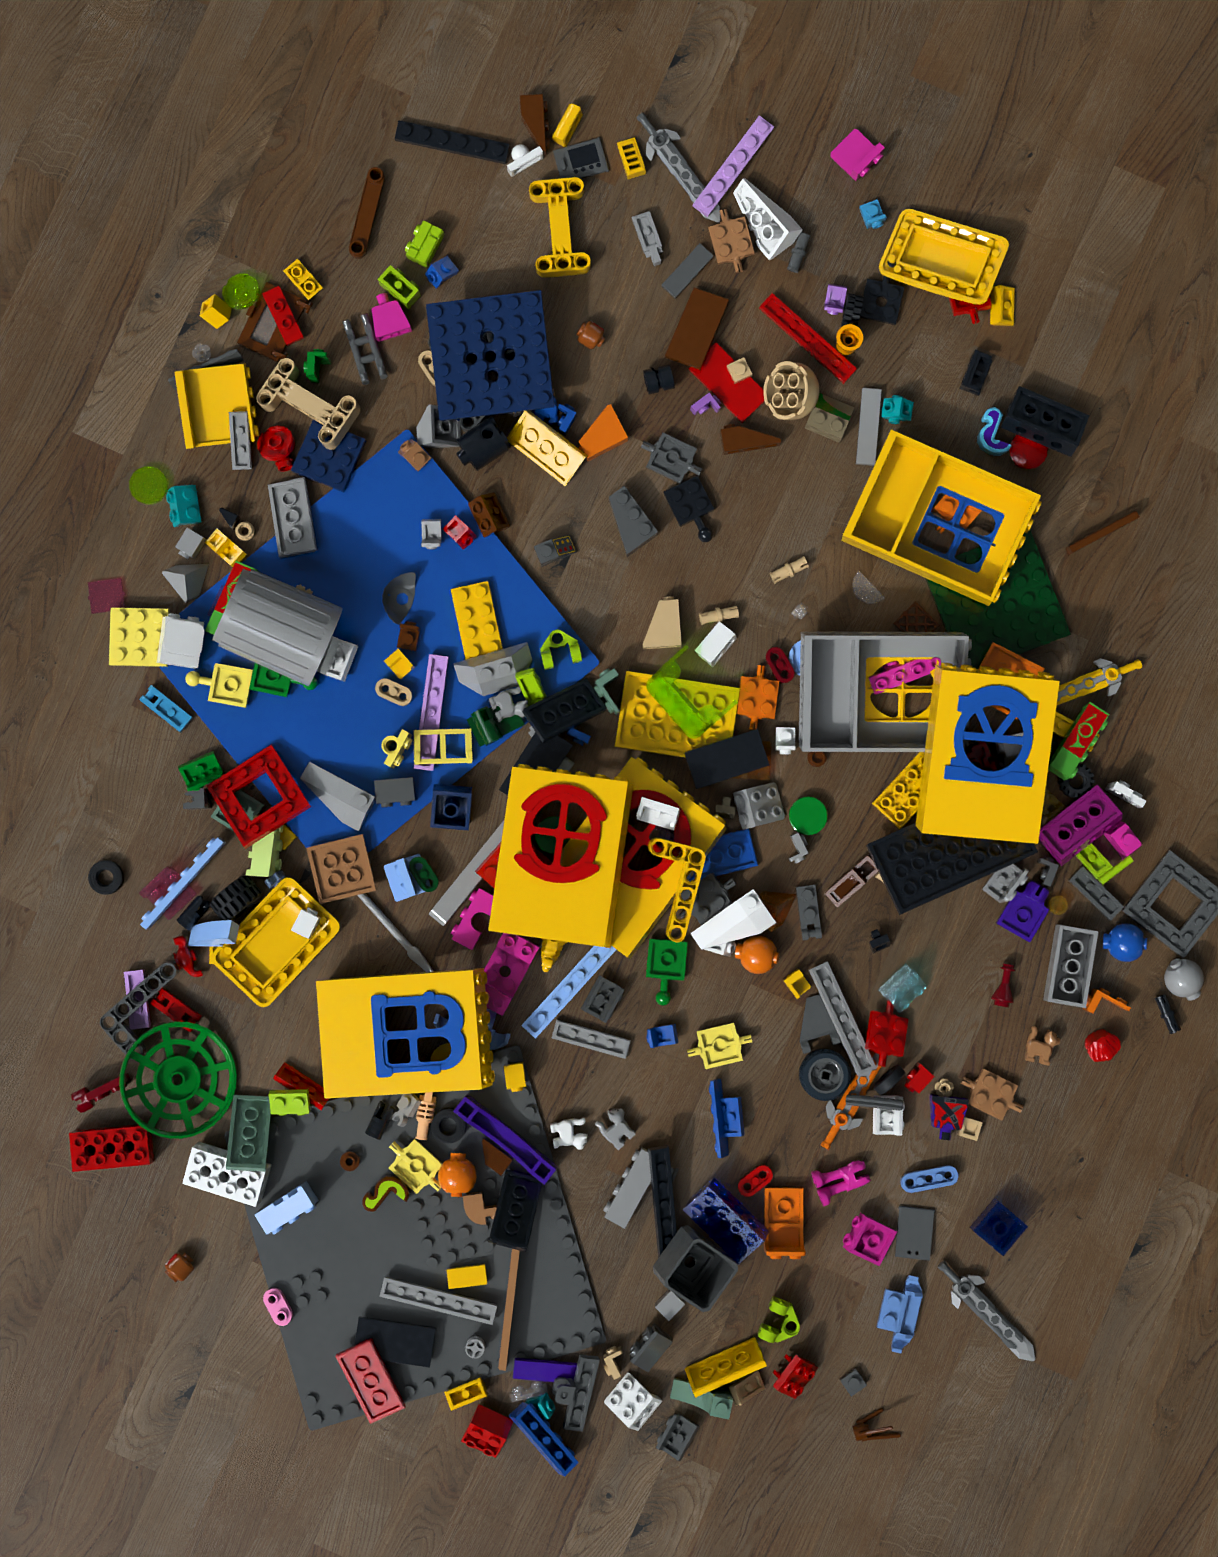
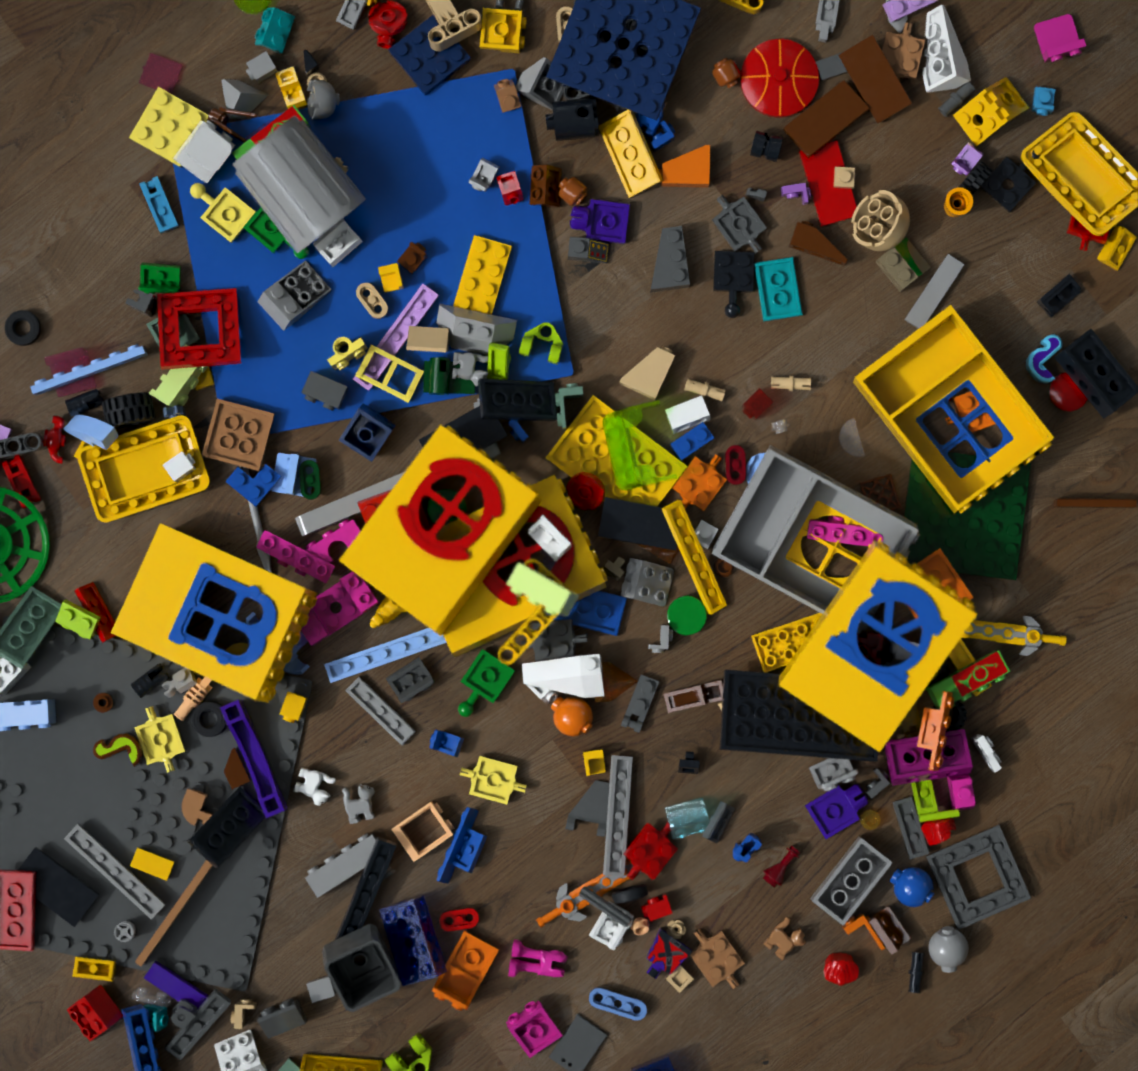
camera: 30 degrees right, 0 degrees up
(179, 607) = (219, 119): none -> reddish brown plant
(257, 543) = (322, 99): none -> light grey cylinder
(292, 517) = (366, 93): light grey tile -> none
(324, 723) = (293, 295): none -> light grey slope
(344, 799) = (274, 372): light grey wedge -> none
(380, 401) = (502, 30): none -> yellow plate
(381, 907) = (253, 488): none -> blue plate
(402, 584) = (431, 206): dark grey piece -> none
(447, 947) = (292, 555): none -> dark pink bracket
(457, 1175) = (192, 767): orange brick -> none
(460, 699) = (428, 339): none -> tan slope
(514, 506) = (572, 191): none -> dark orange head
(553, 518) = (602, 220): none -> dark purple plate
(638, 315) = (779, 78): none -> red dish
(665, 756) = (586, 491): none -> red tile
(674, 1139) = (407, 843): none -> light nougat window
(675, 424) = (758, 195): none -> dark grey tile
(677, 862) = (542, 590): none -> yellowish green wedge
(720, 272) = (875, 79): none -> reddish brown tile
(732, 665) = (691, 441): none -> blue brick
(734, 496) = (778, 289): none -> teal tile
(770, 604) = (756, 404): none -> clear red brick
(788, 762) = (694, 557): none -> yellow plate
(807, 338) = (922, 182): red plate -> none
(837, 240) = (995, 105): none -> yellow bracket
(837, 1077) = (566, 869): wheel -> none
(897, 409) = (968, 290): teal brick -> none
(912, 1102) = (640, 926): none -> light nougat plate
(931, 977) = (718, 822): none -> dark grey plate
(967, 986) = (742, 851): none -> blue animal
(1072, 798) = (934, 728): none -> orange bracket
(1121, 883) = (938, 830): none -> red hair
(1125, 989) = (889, 929): none -> reddish brown bracket

